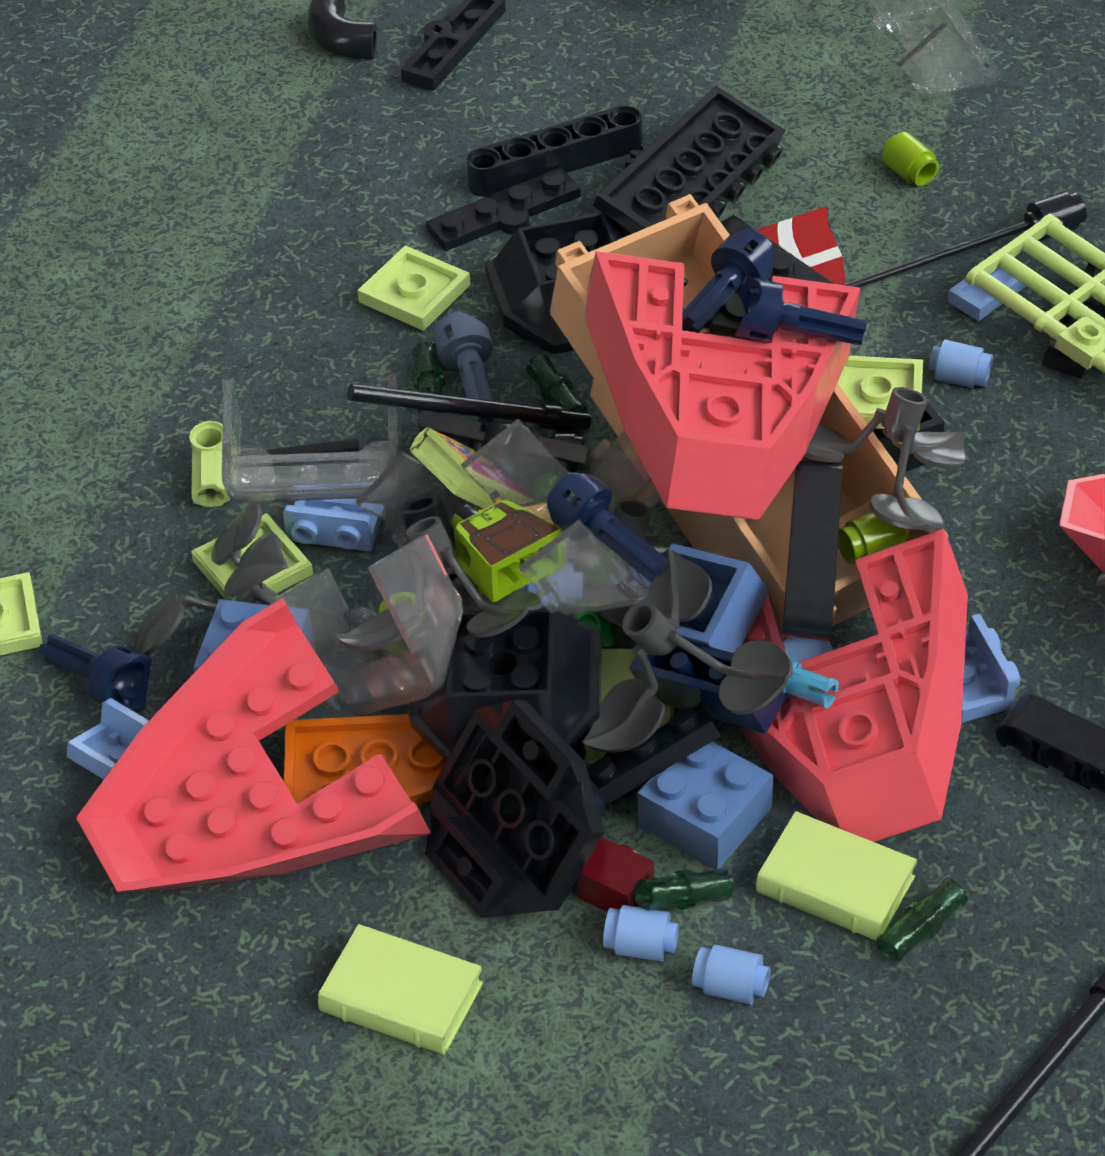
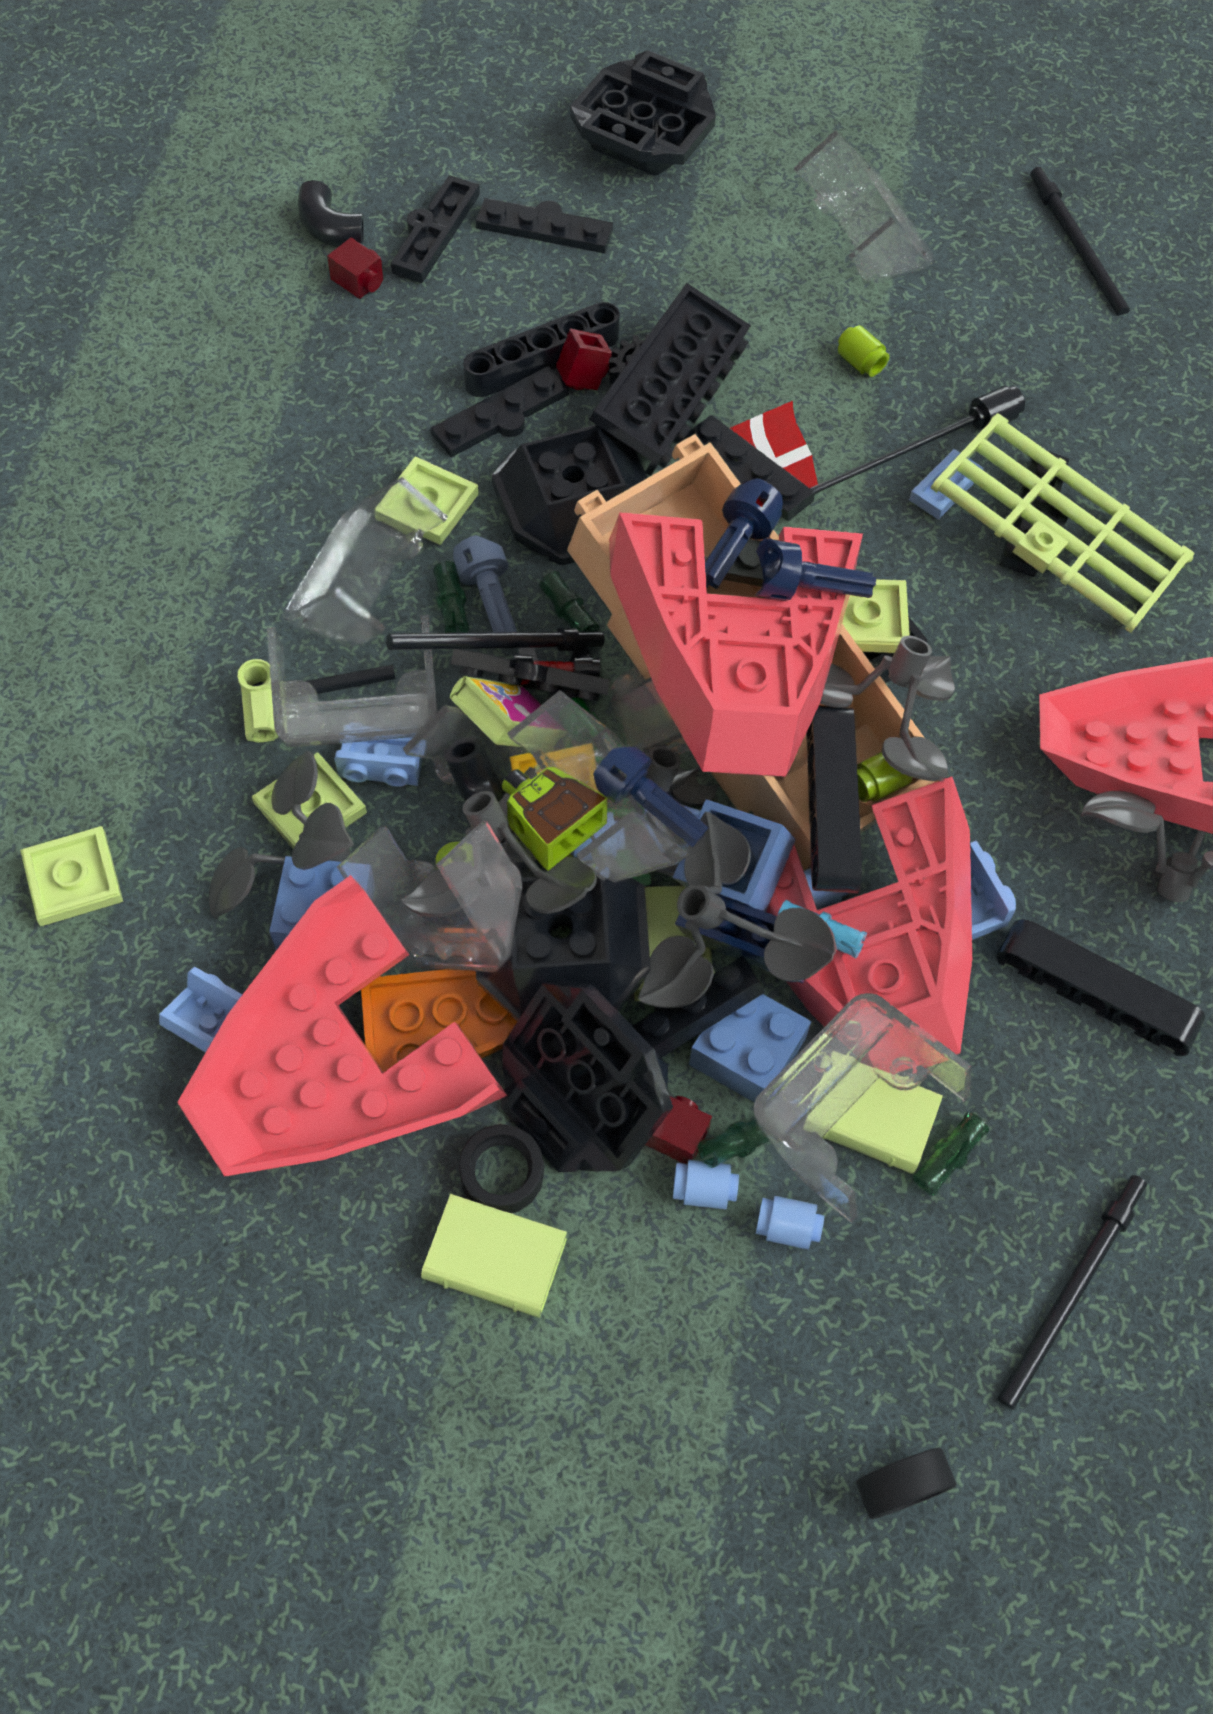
camera: 10 degrees left, 15 degrees up
(114, 674) = (196, 939): dark blue piece -> none
(336, 336) = (358, 562): none -> clear windscreen
(362, 73) = (355, 268): none -> dark red brick
(417, 877) = (495, 1136): none -> black tyre
(573, 38) = (544, 224): none -> black hinge
(597, 159) = (584, 360): none -> dark red brick
(796, 817) = (833, 1071): none -> clear windscreen
(960, 364) = (929, 568): light blue brick -> none

